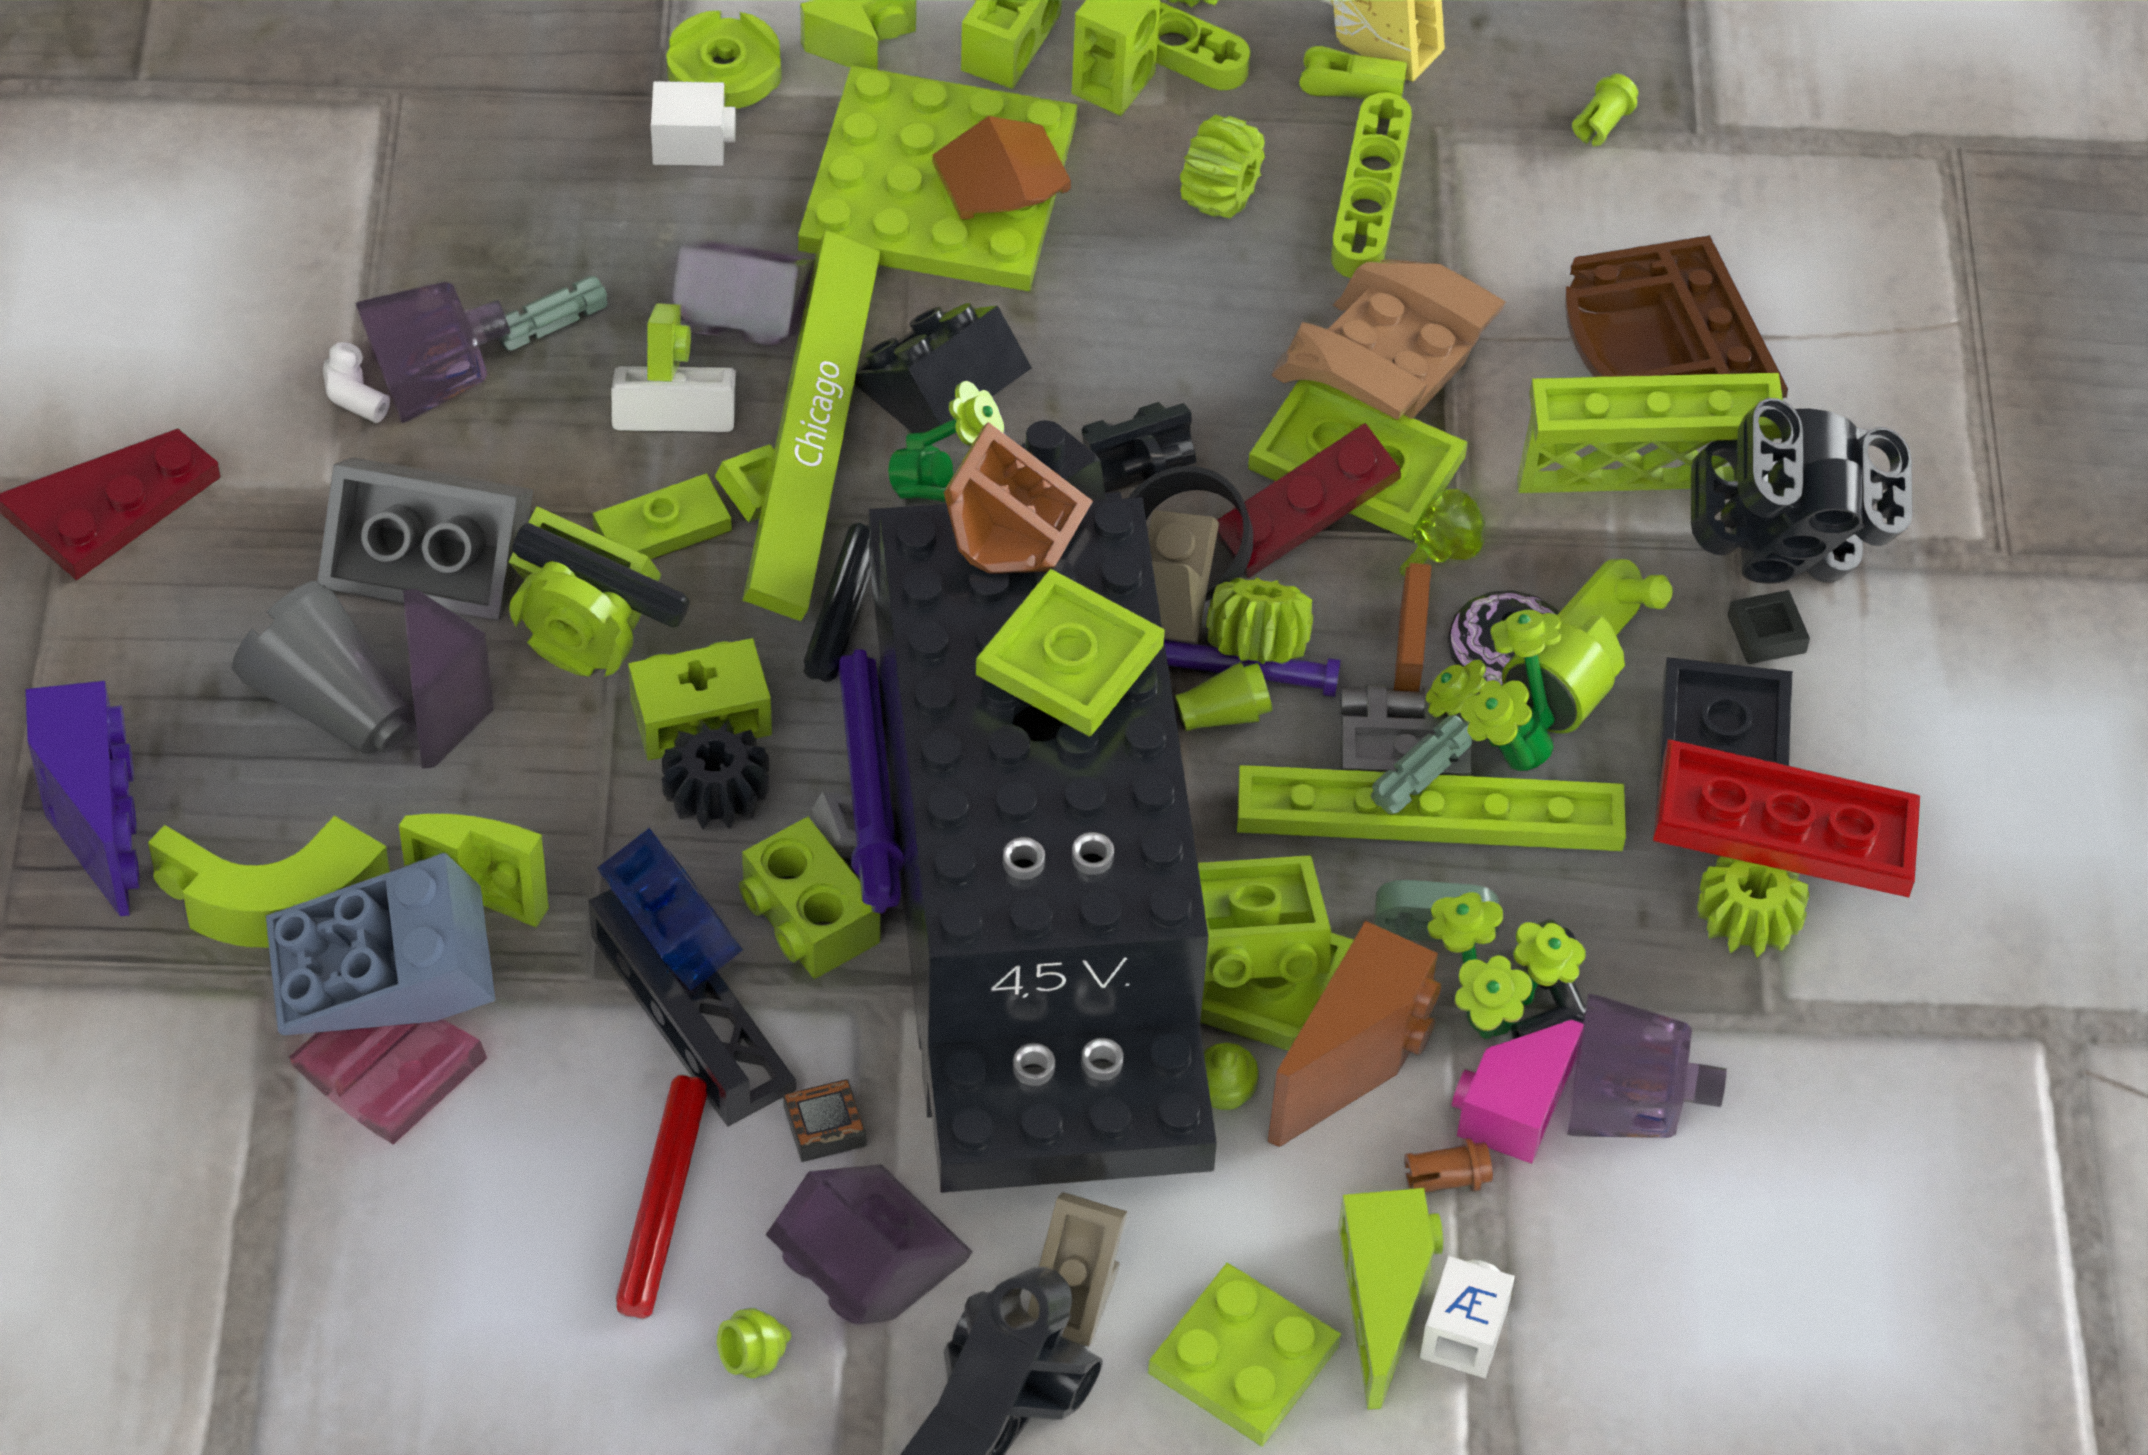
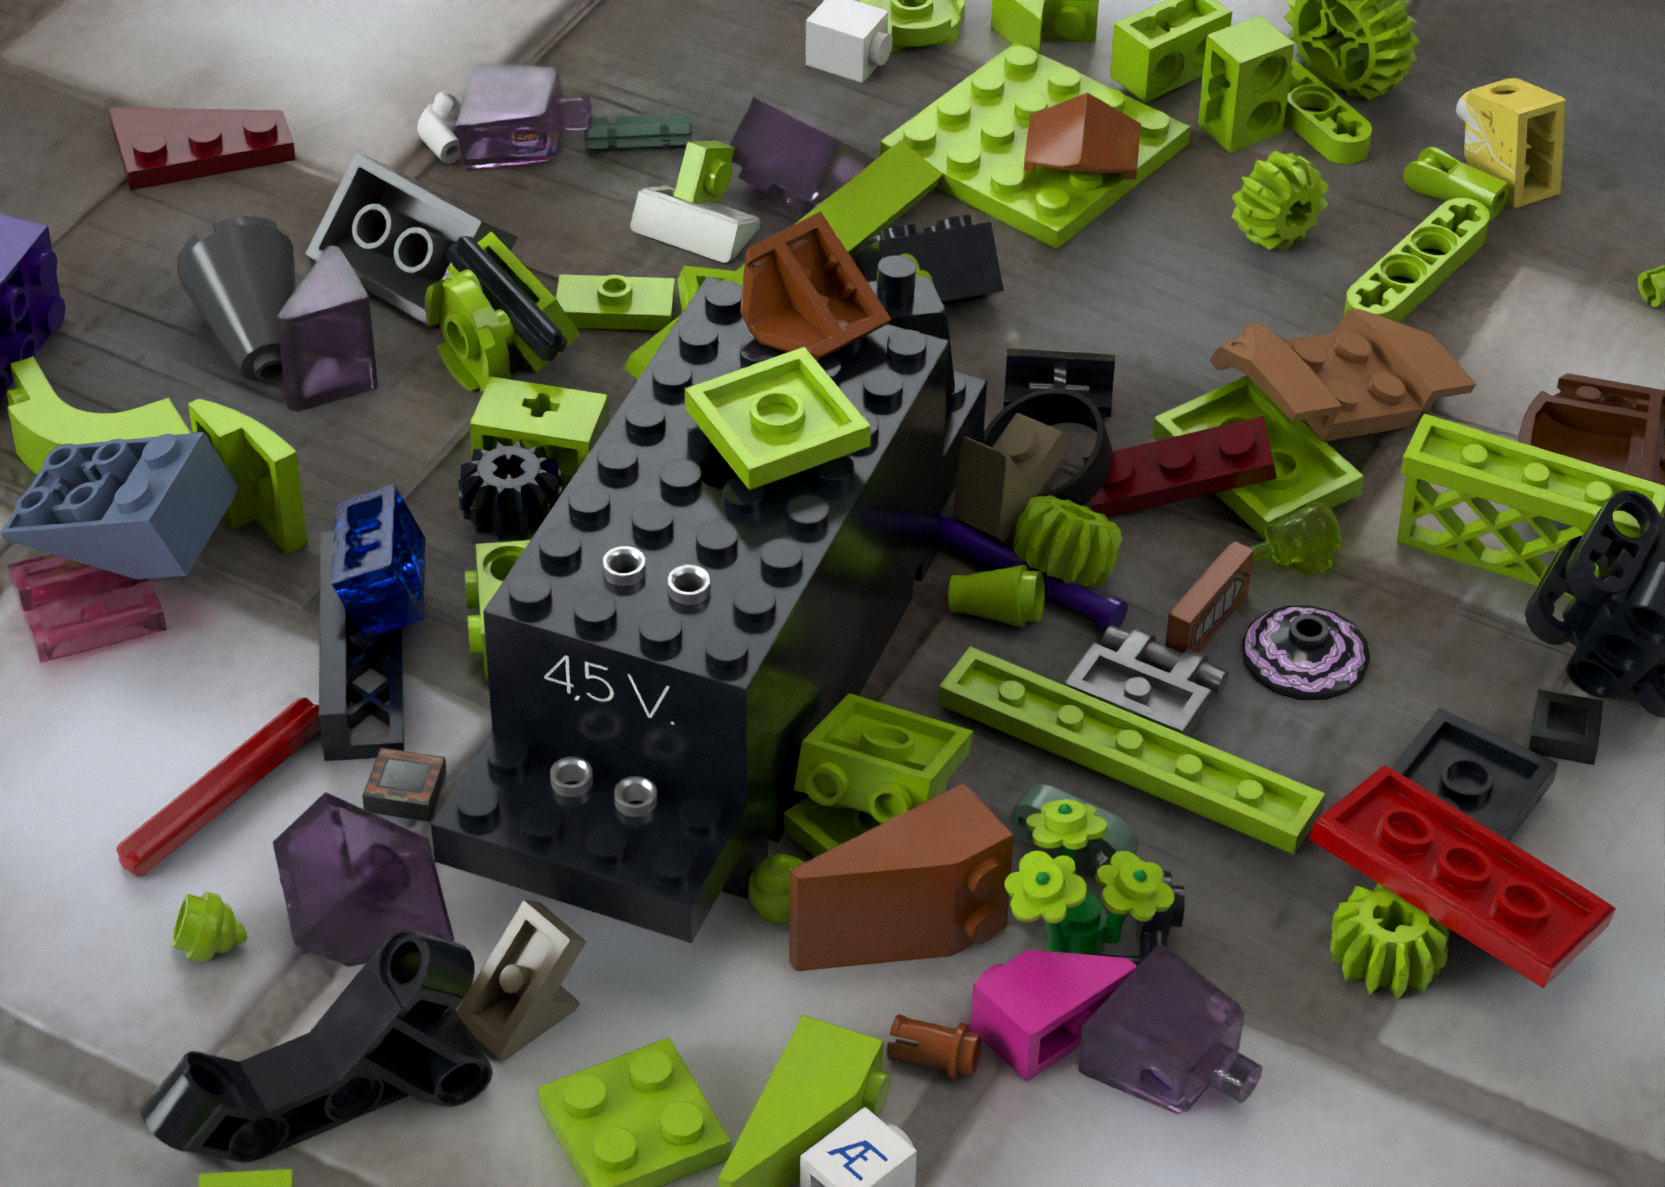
camera: 30 degrees right, 10 degrees down
(1421, 765) = (1135, 702): sand green axle -> none
(1502, 710) = (1216, 664): lime plant -> none
(1589, 656) = (1338, 676): lime piece -> none

